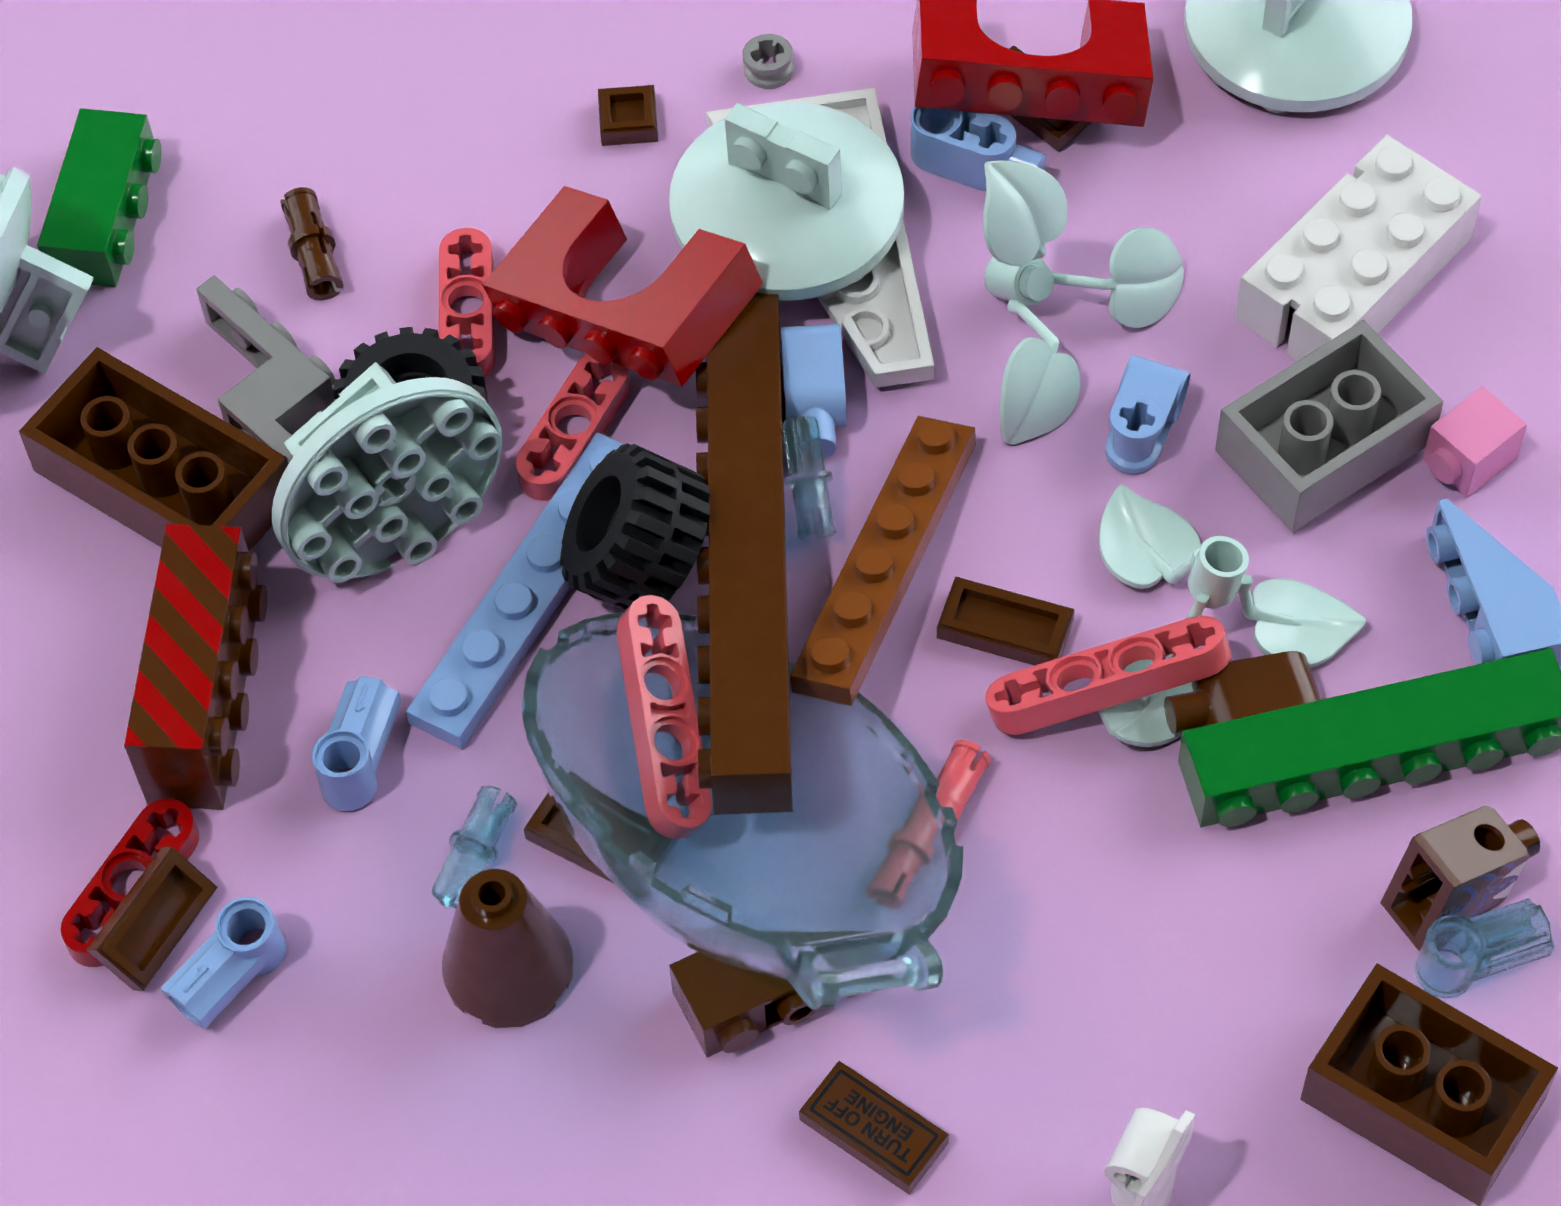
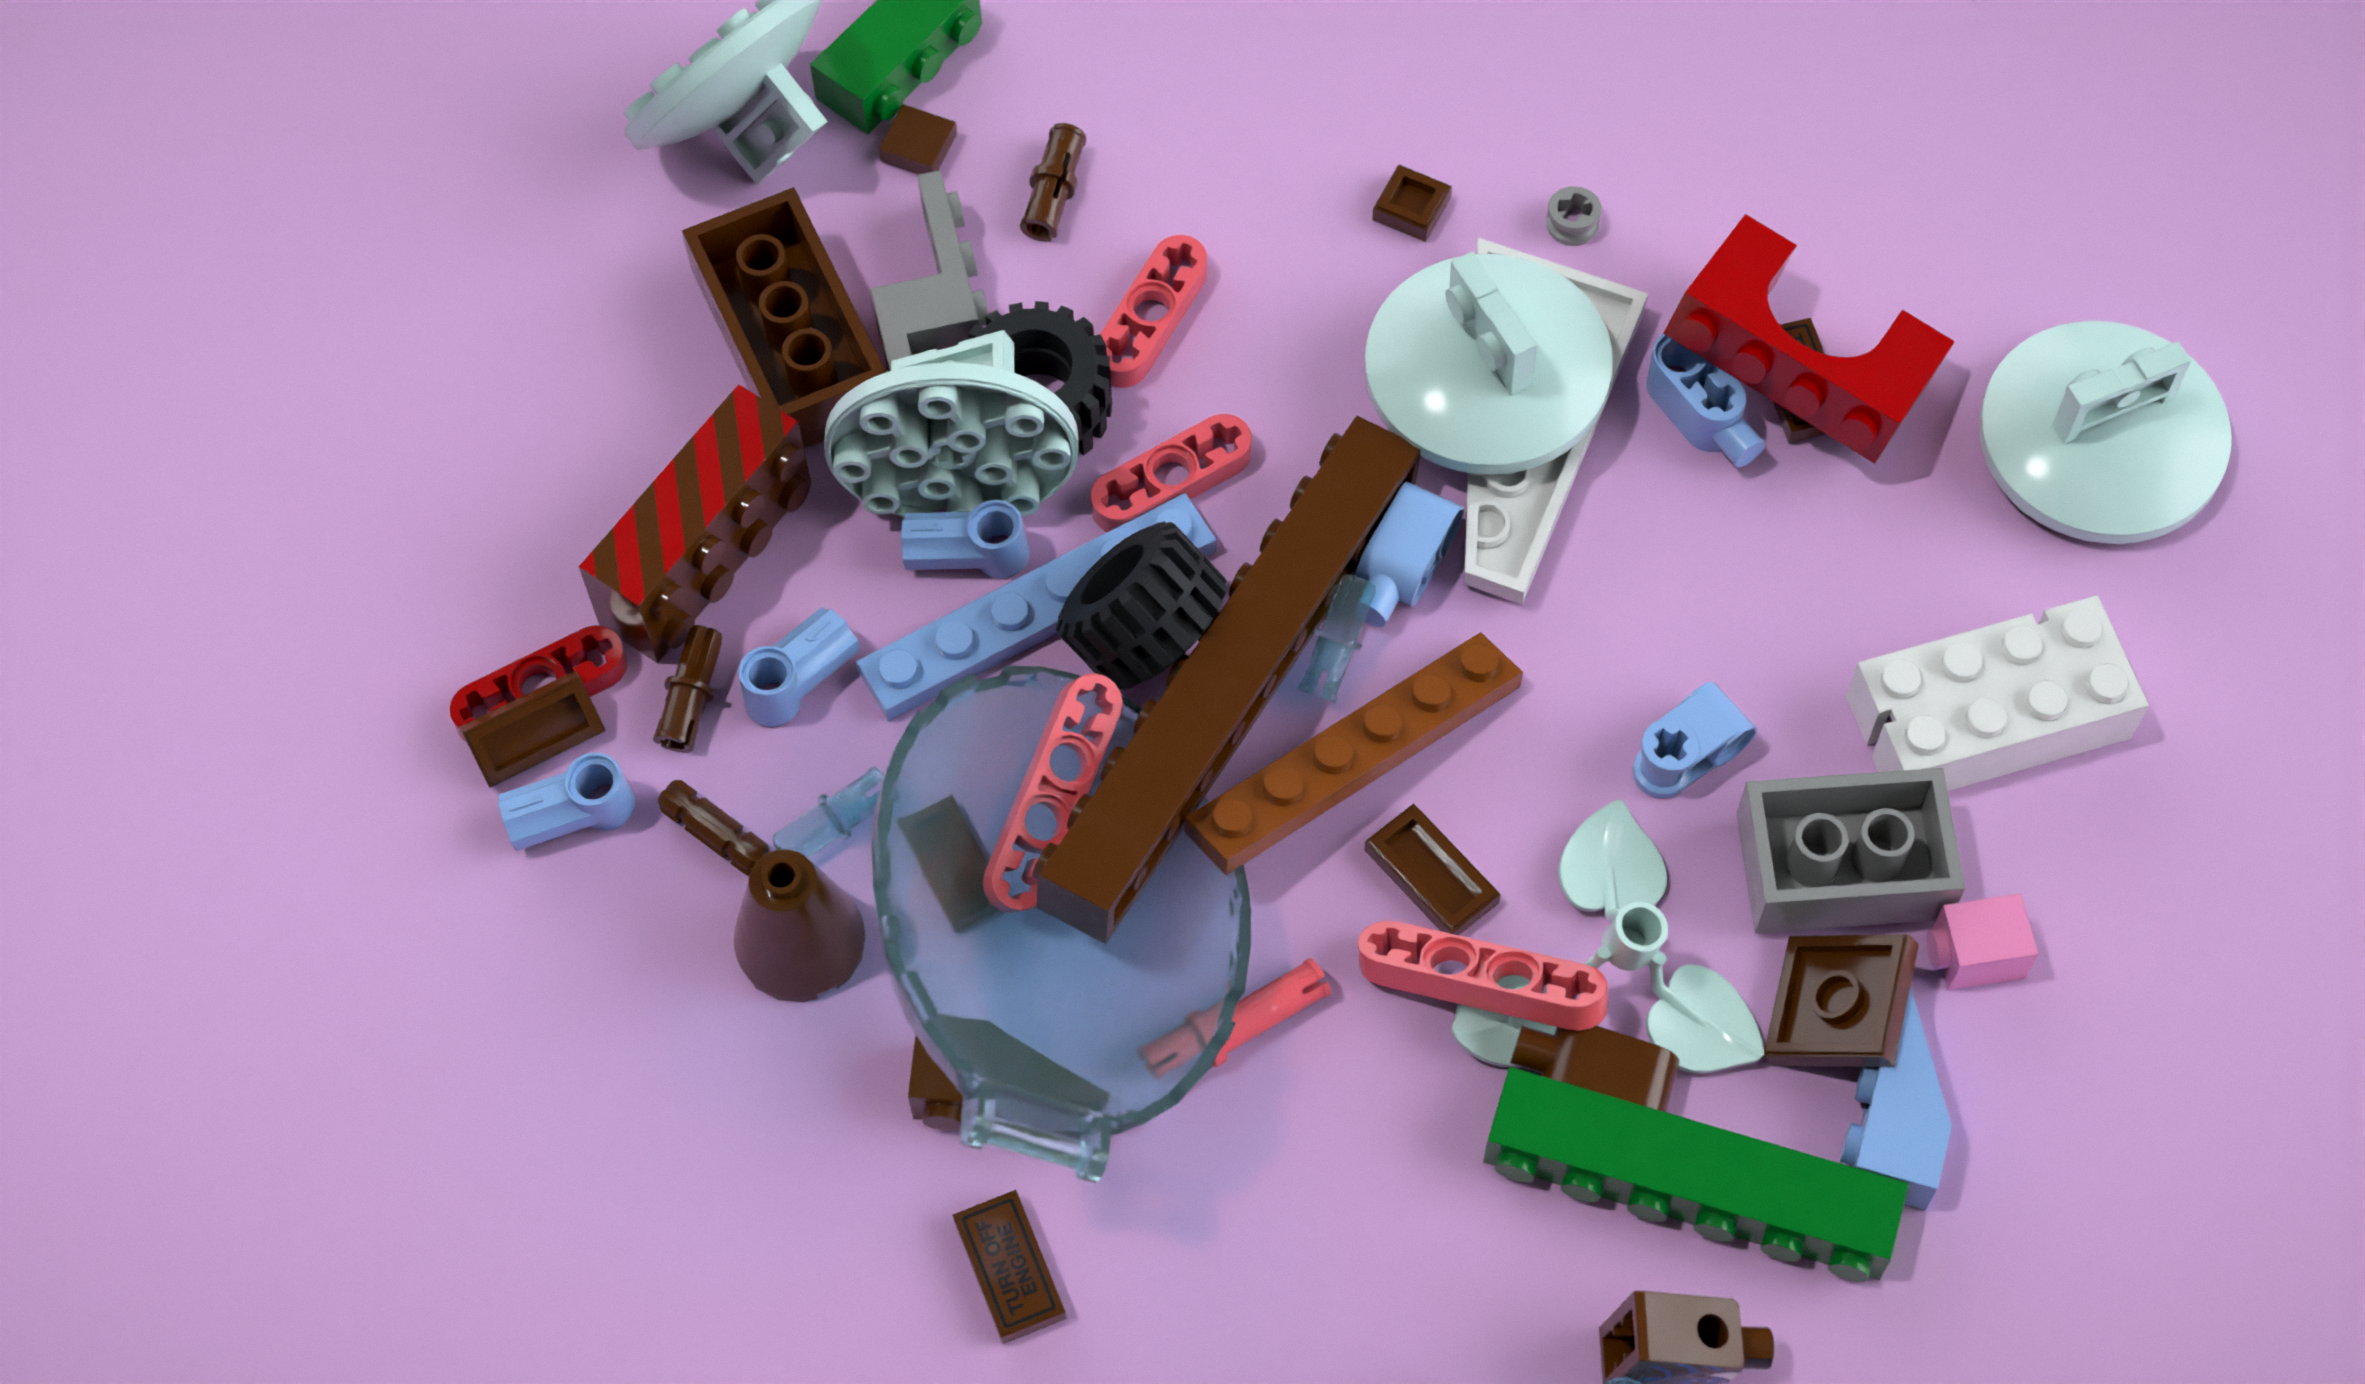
camera: 30 degrees right, 5 degrees up
(167, 268) = (917, 140): none -> reddish brown tile
(272, 812) = (689, 690): none -> reddish brown axle
(370, 914) = (712, 826): none -> reddish brown axle
(433, 565) = (961, 540): none -> light blue piece
(654, 332) = (1279, 428): red arch -> none
(1019, 216) = (1662, 497): light aqua plant -> none
(1400, 542) = (1841, 1000): none -> reddish brown tile

